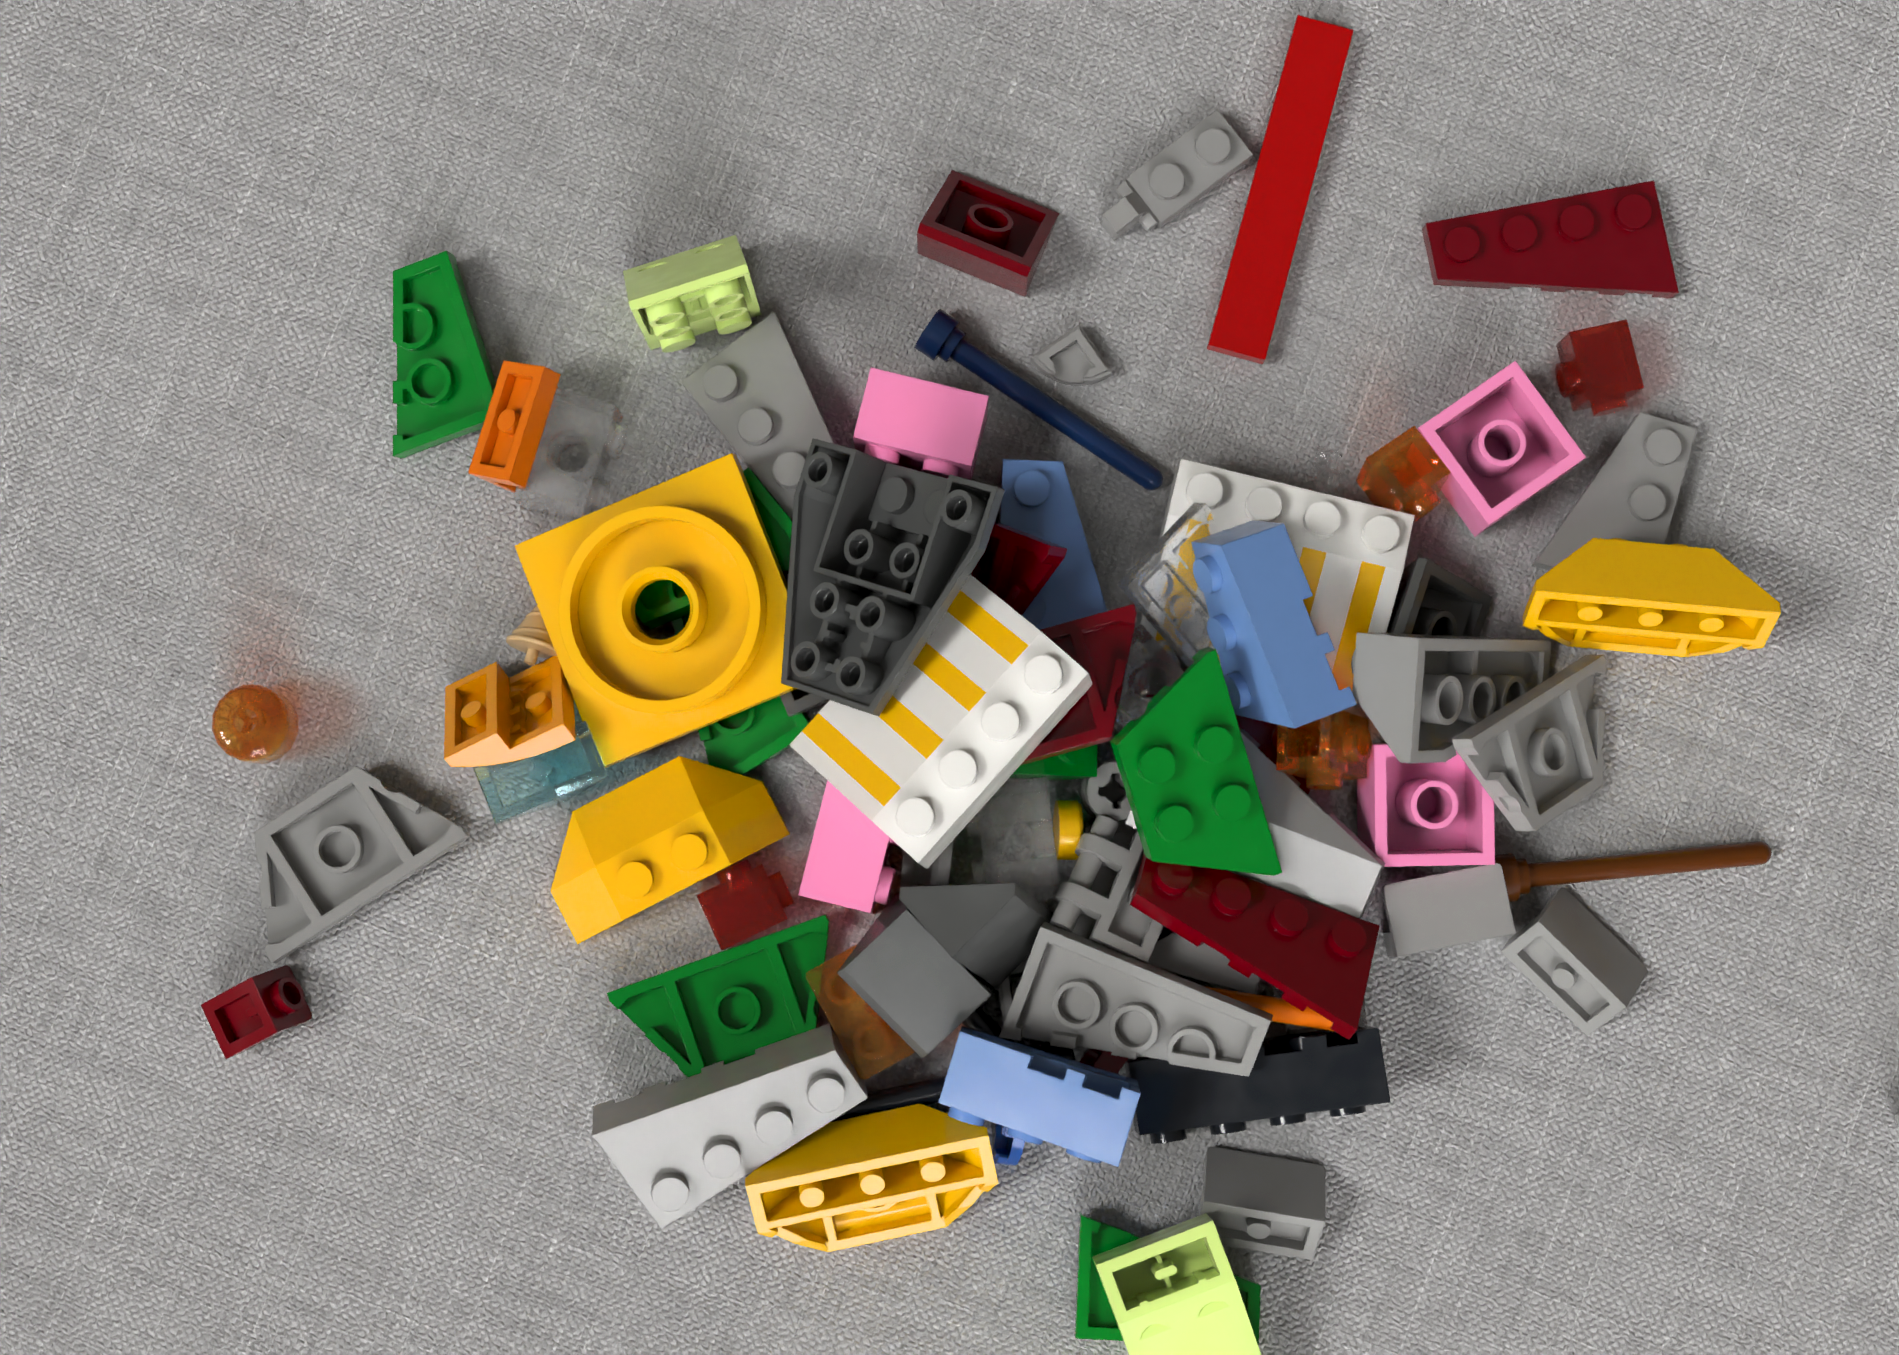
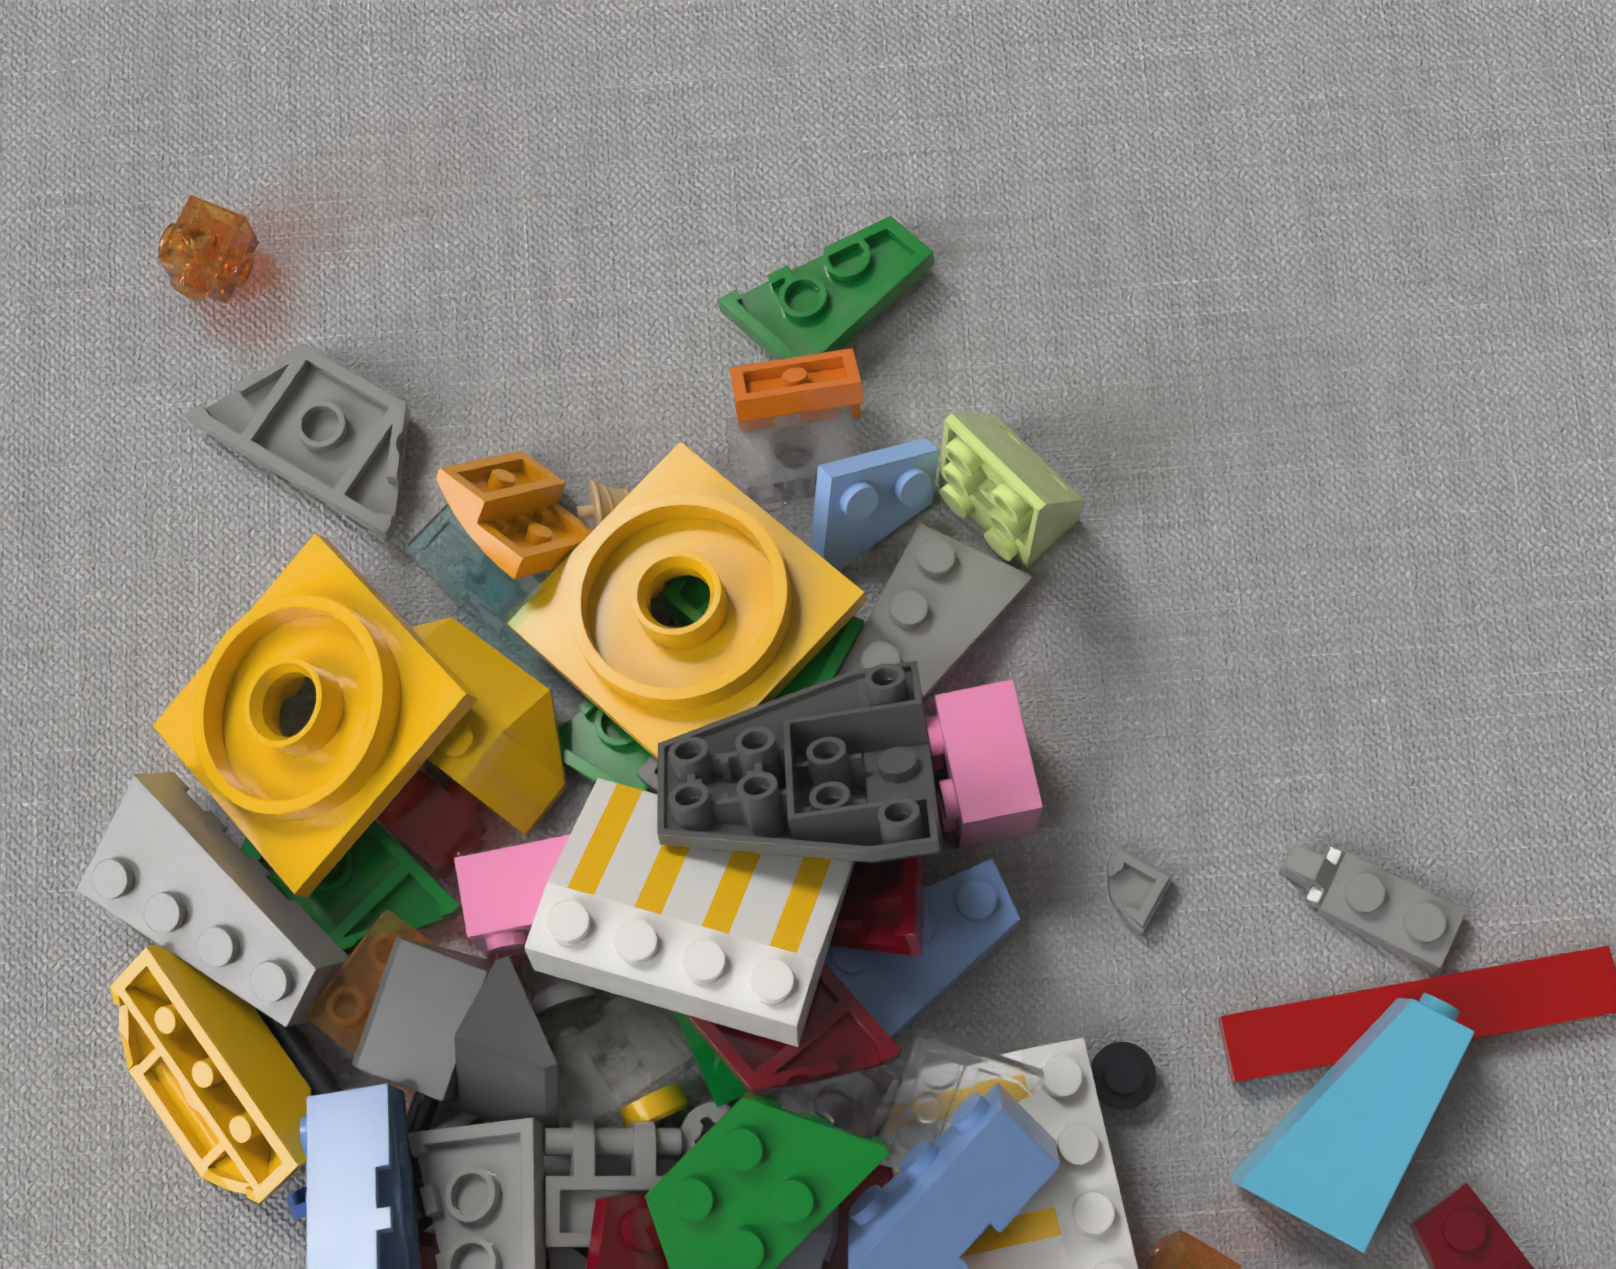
camera: 70 degrees right, 10 degrees down
(122, 879) = (207, 251): none -> clear orange brick
(256, 1010) = (139, 427): dark red bracket -> none
(274, 721) = (404, 296): clear orange head -> none
(641, 410) = (870, 497): none -> light blue wing
(647, 909) = (373, 724): none -> yellow piece
(947, 341) = (1088, 752): dark blue piece -> none
(986, 232) = (1218, 740): dark red slope -> none
(1218, 443) = (1123, 1075): none -> black plate
(1325, 471) = (1152, 1201): clear tile -> none
(1346, 278) = (1361, 1123): none -> medium azure slope

